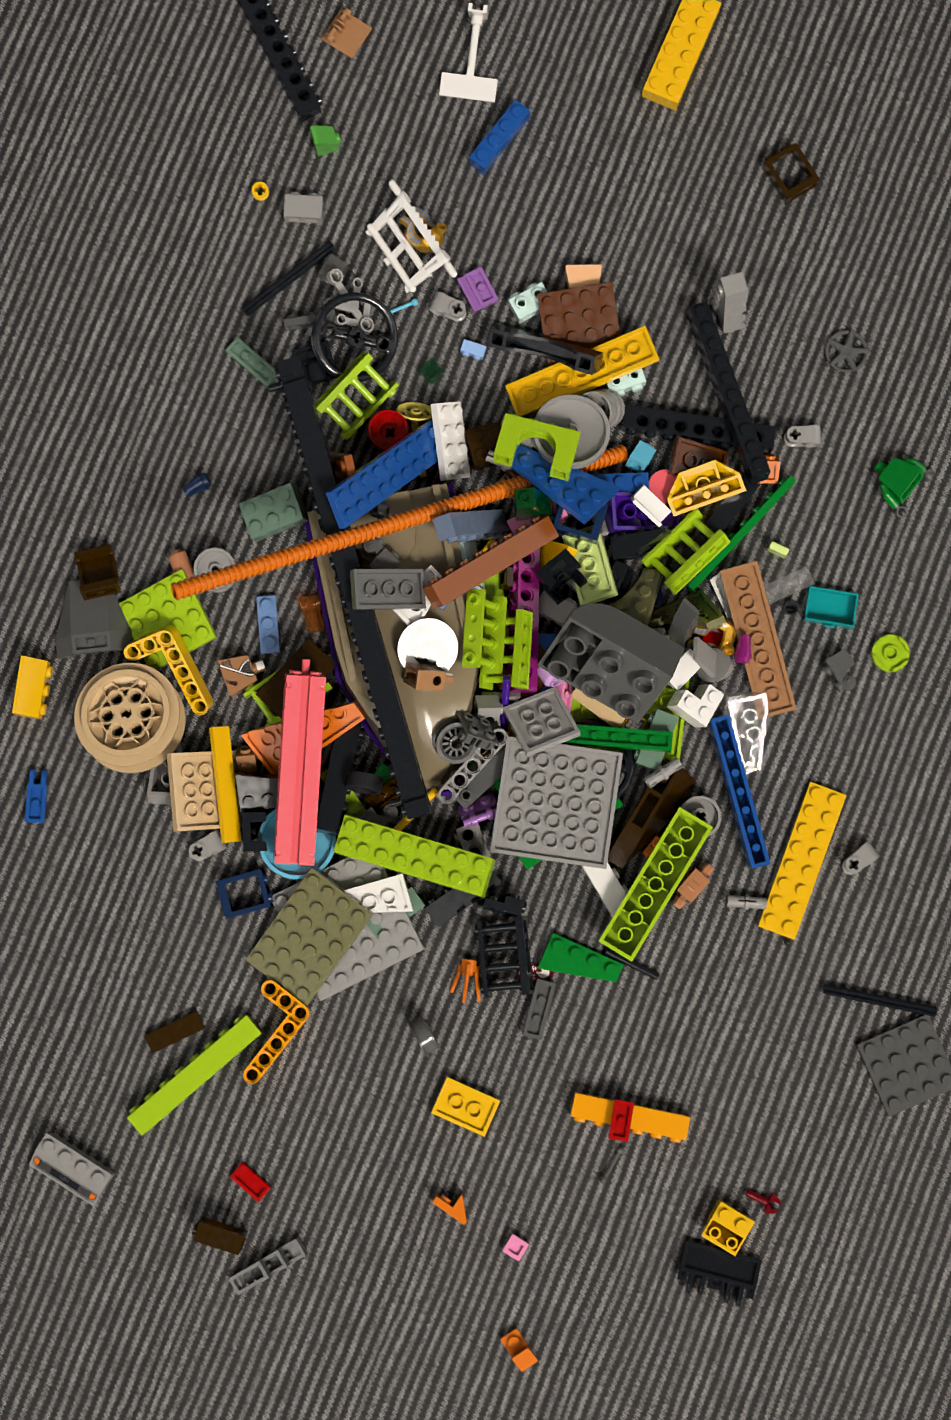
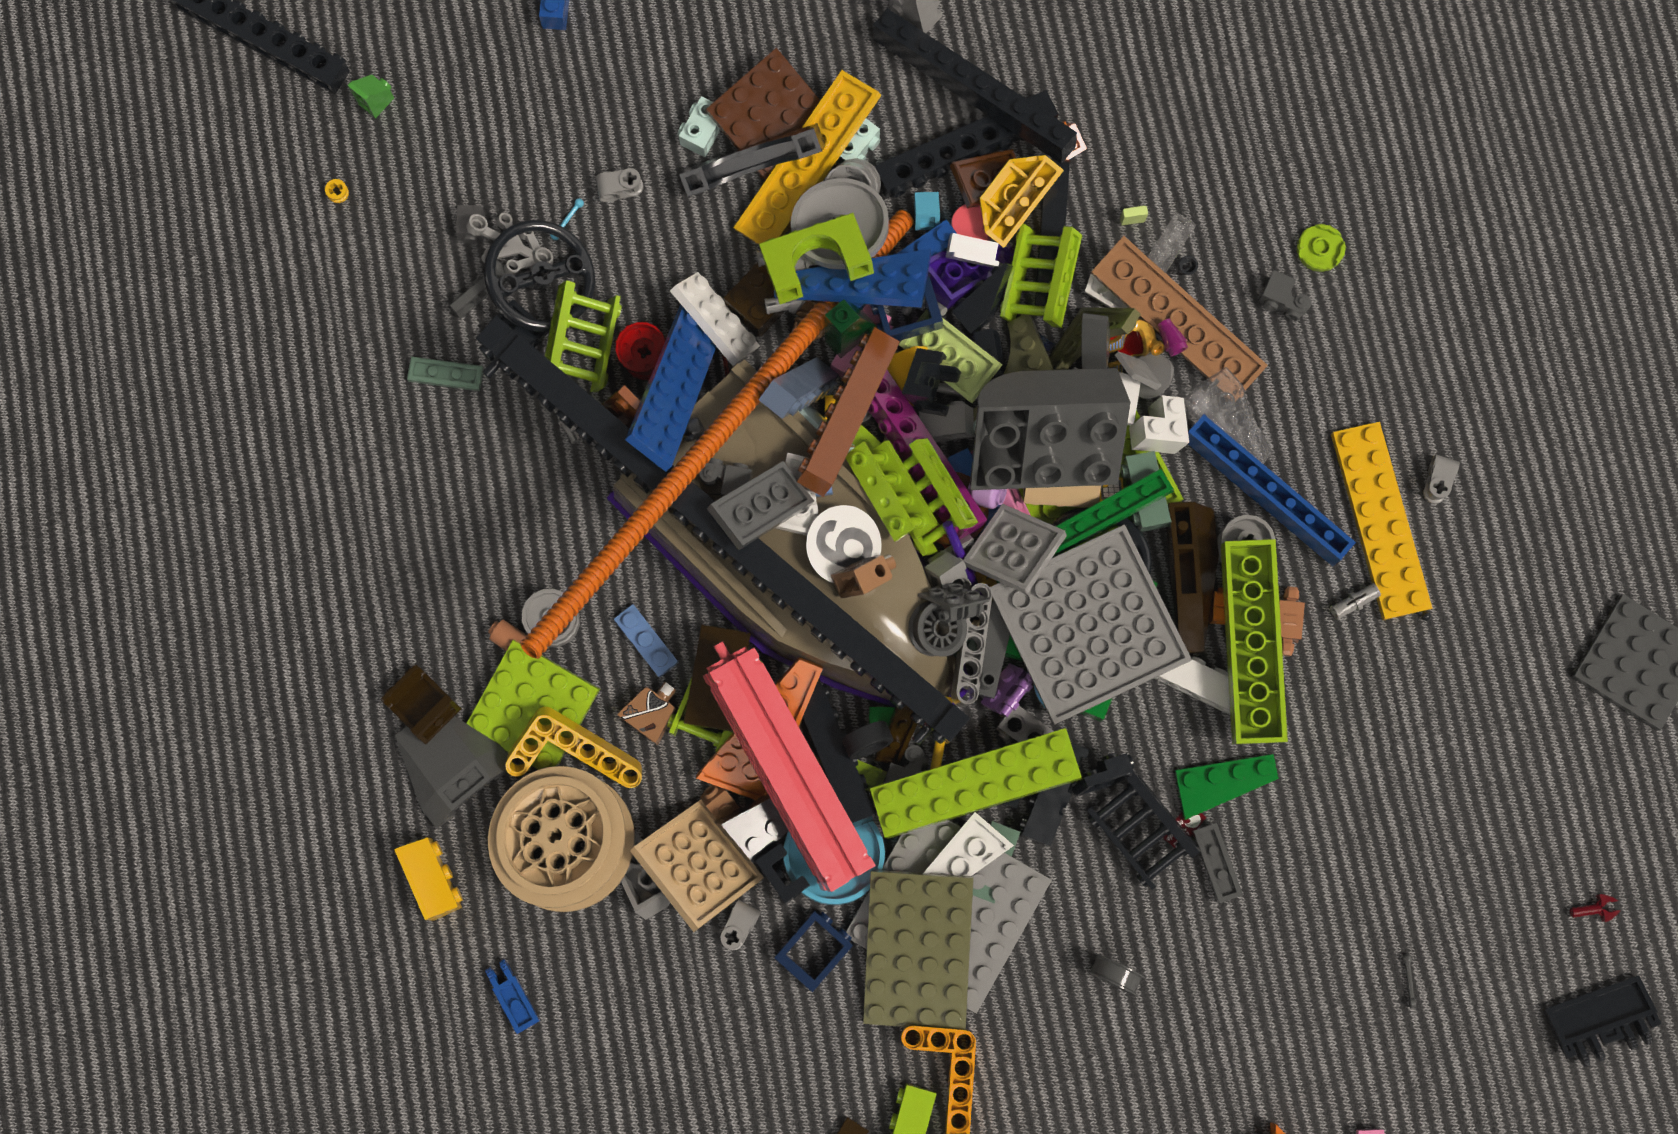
camera: 35 degrees left, 5 degrees down
(197, 484) = (470, 540): dark blue cone -> none
(225, 784) = (714, 843): yellow tile -> none
(274, 512) = (573, 514): sand green brick -> none
(288, 278) = (427, 262): black axle -> none
(303, 208) = (395, 179): light grey brick -> none
(311, 609) = (683, 594): clear orange piece -> none
(386, 217) = (491, 131): white piece -> none
(415, 417) = (660, 318): light yellow dish -> none
(418, 241) = (551, 125): pearl gold piece -> none
(431, 371) = (645, 262): clear green plate -> none
(465, 1106) = (1211, 1023): yellow plate -> none
(467, 967) = (1112, 870): orange plant -> none
(473, 349) = (674, 212): light blue piece -> none
(477, 289) = (638, 148): medium lavender plate -> none
(506, 578) = (873, 423): dark brown tile -> none
(582, 275) = (738, 63): light nougat torso -> none
(621, 1120) = (1391, 924): red plate -> none
(635, 965) = (1280, 747): black bar -> none
(644, 1119) = (1392, 914): light orange brick -> none
(663, 772) = (1178, 519): light grey pin -> none
(727, 1227) = (1580, 964): yellow slope -> none
(745, 527) = (1084, 213): green plate -> none
(806, 436) = (1079, 85): light grey piece -> none
(830, 607) = (1228, 240): teal container -> none
(880, 1000) = (1563, 613): black axle -> none
(900, 479) = (1209, 66): green torso -> none

